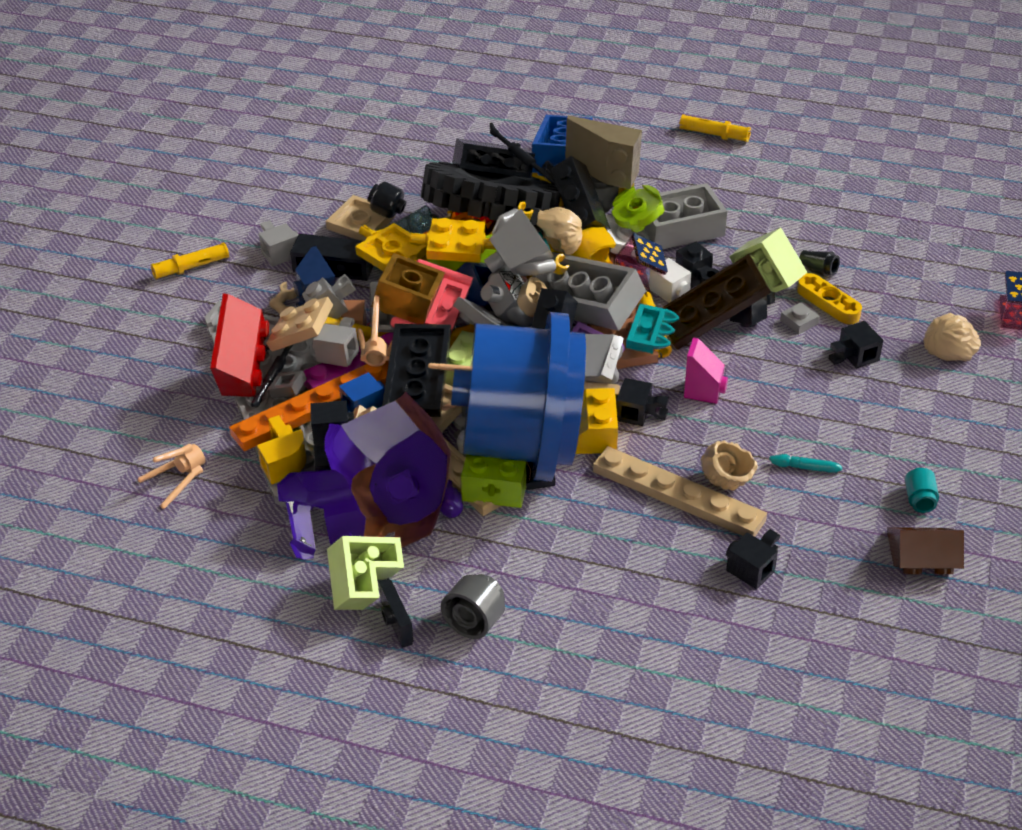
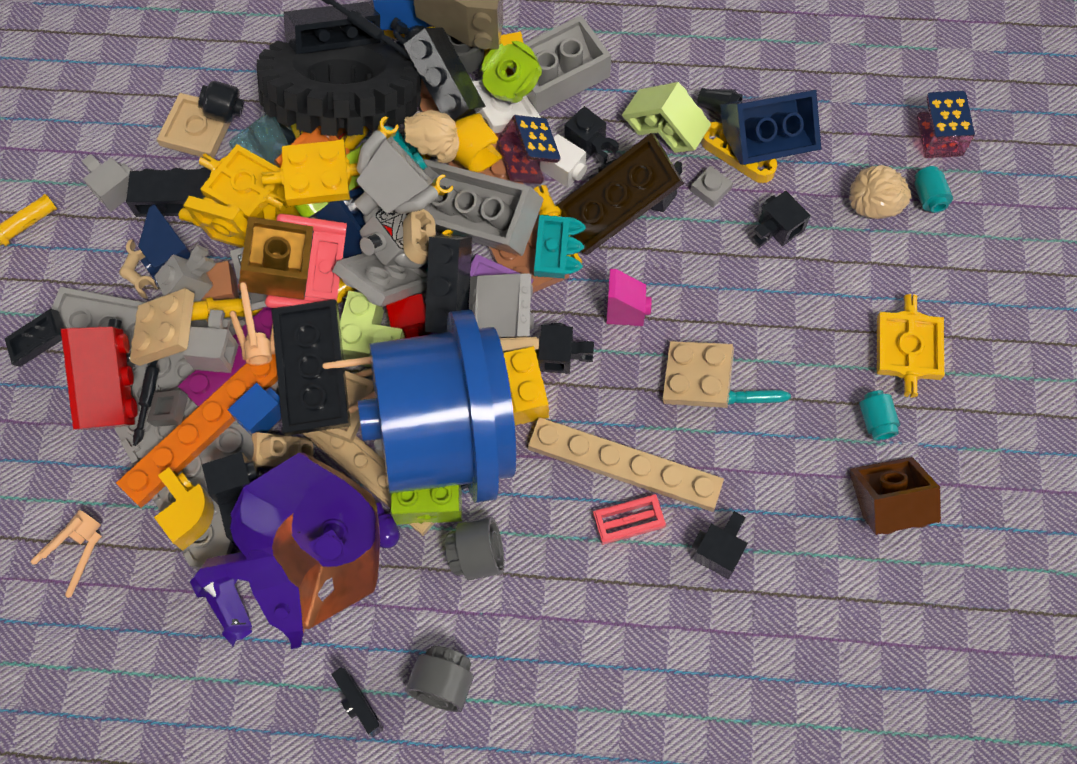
camera: 10 degrees left, 25 degrees up
(187, 330) = (34, 337): none -> black plate
(357, 566) = (301, 661): yellowish green brick -> none
(361, 268) = (218, 221): none -> yellow plate
(528, 521) = (475, 549): none -> dark grey piece
(672, 533) = (632, 531): none -> coral tile
(728, 465) = (675, 427): tan hair -> none
(763, 435) = (698, 374): none -> tan plate
(862, 277) = (772, 126): none -> dark blue slope
(960, 447) = (910, 345): none -> yellow plate
(1002, 344) = (933, 189): none -> teal brick

